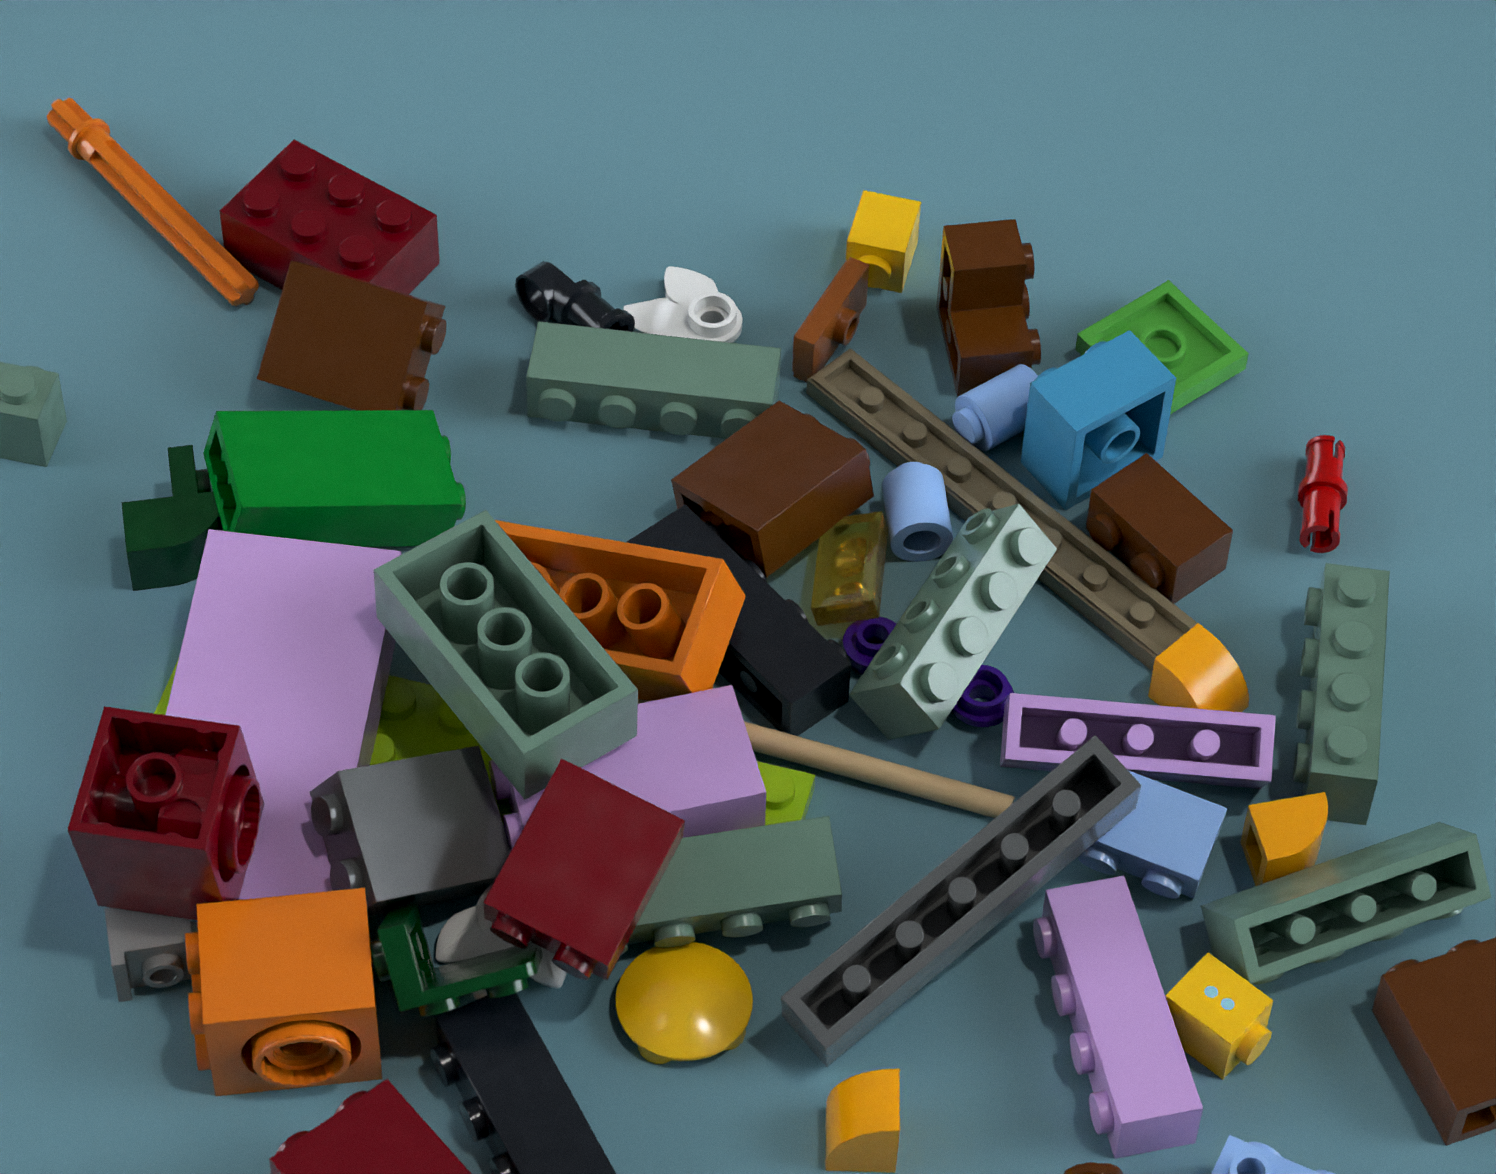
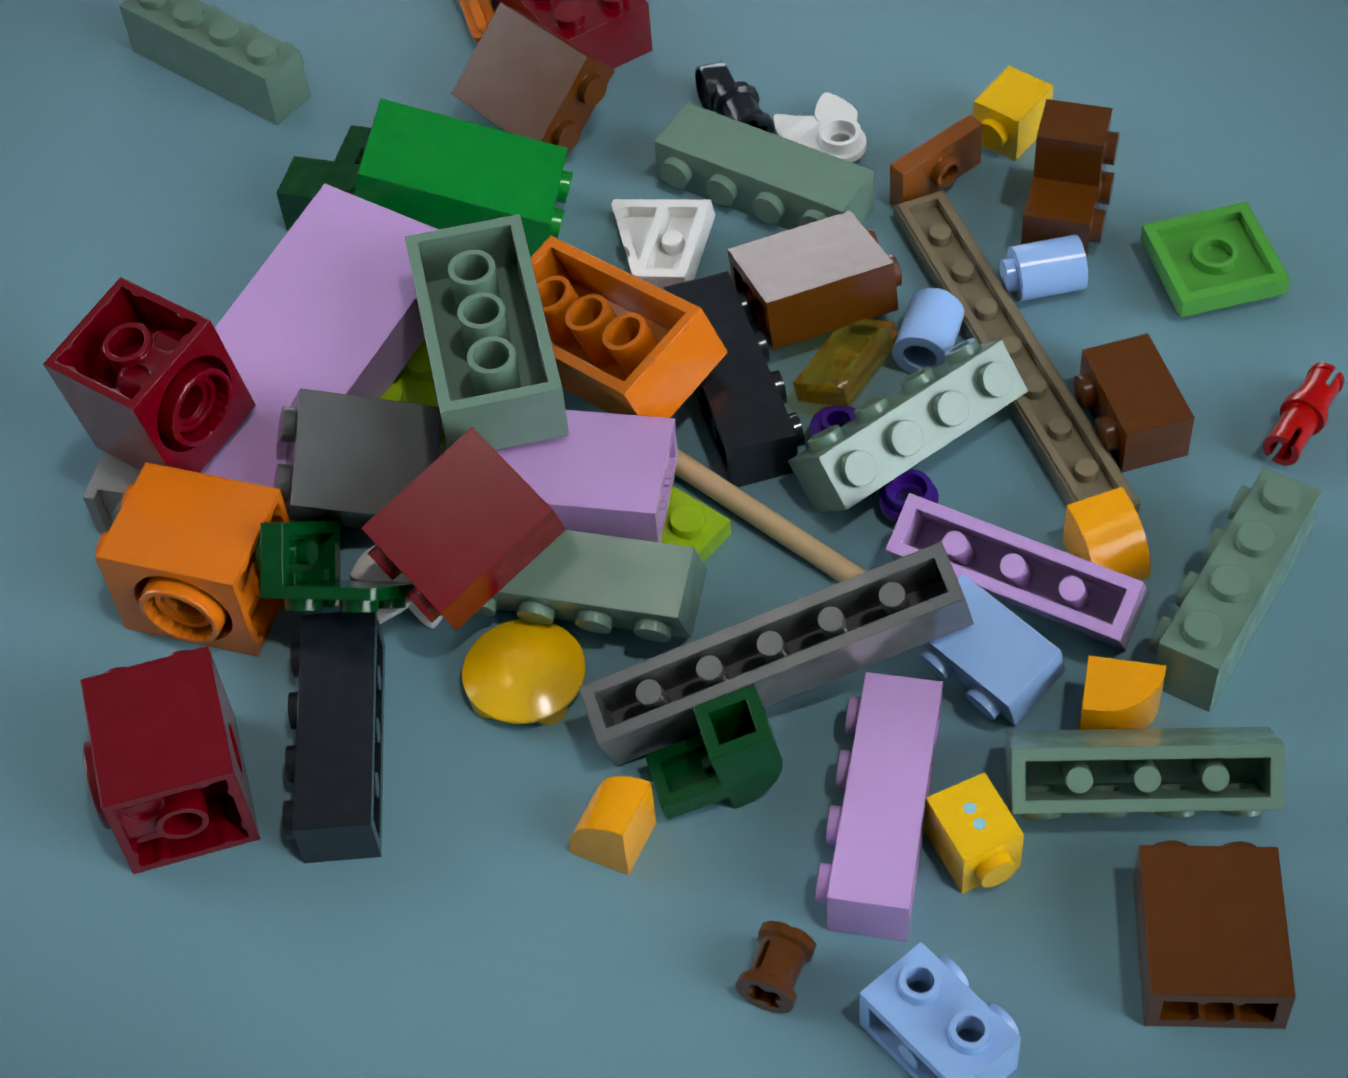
camera: 30 degrees right, 0 degrees up
(578, 484) = (664, 237): none -> white wing
(952, 1023) = (730, 757): none -> dark green brick
(1096, 417) = (1117, 289): dark azure brick -> none

